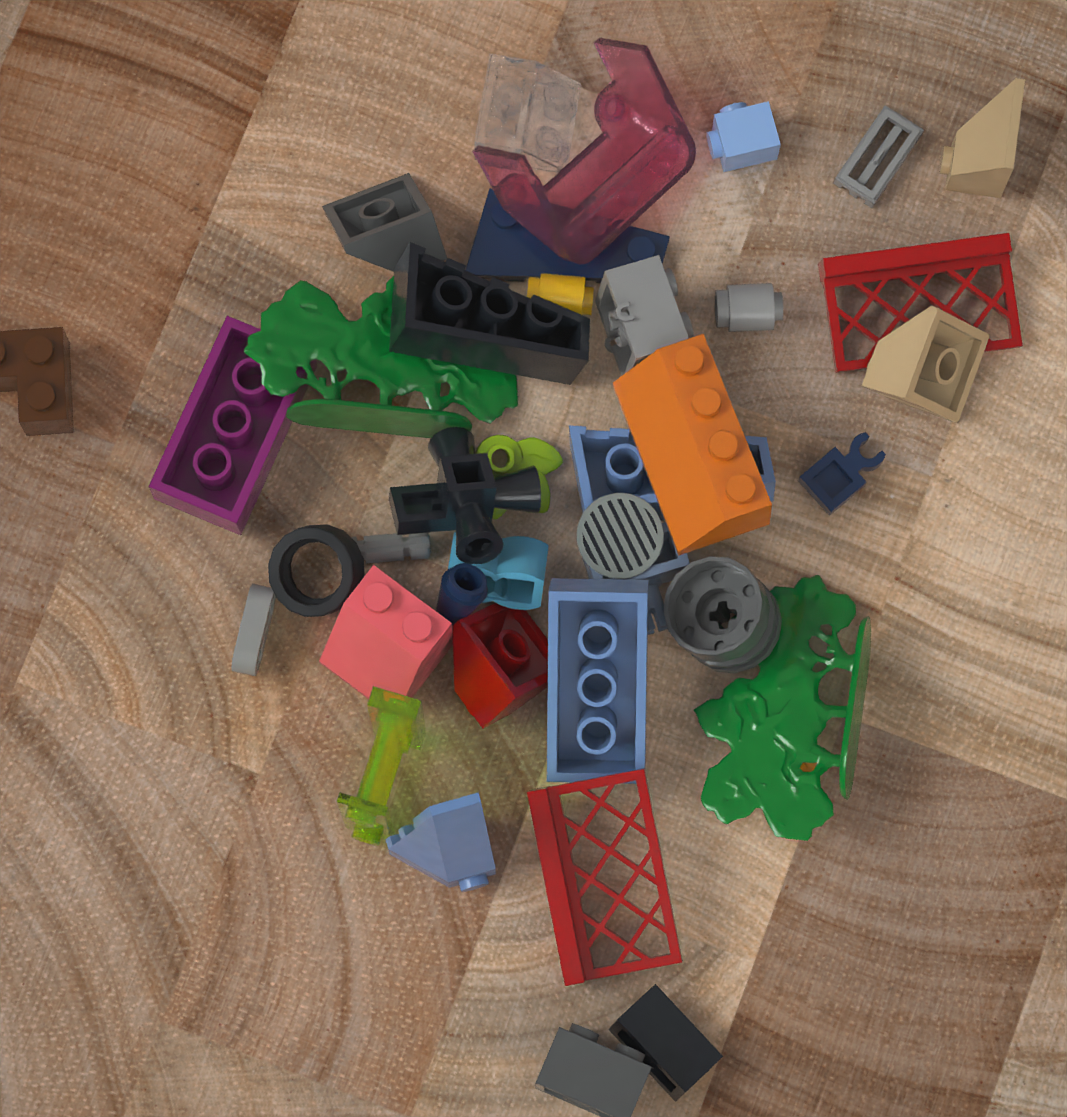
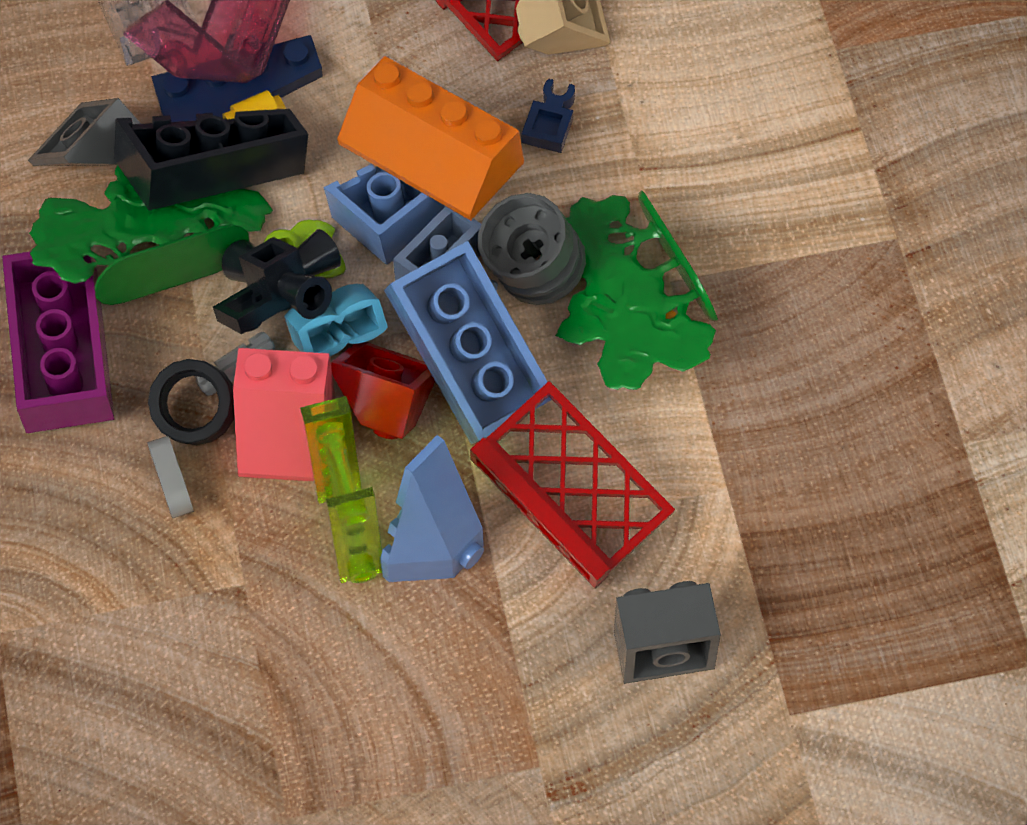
camera: 30 degrees left, 15 degrees down
(461, 592) = (320, 335): dark blue cone -> none
(620, 535) = (415, 233): light grey sticker -> none
(640, 311) = (321, 82): light grey brick -> none
(668, 1040) = (725, 572): black hinge -> none
(748, 307) = (404, 44): light grey brick -> none

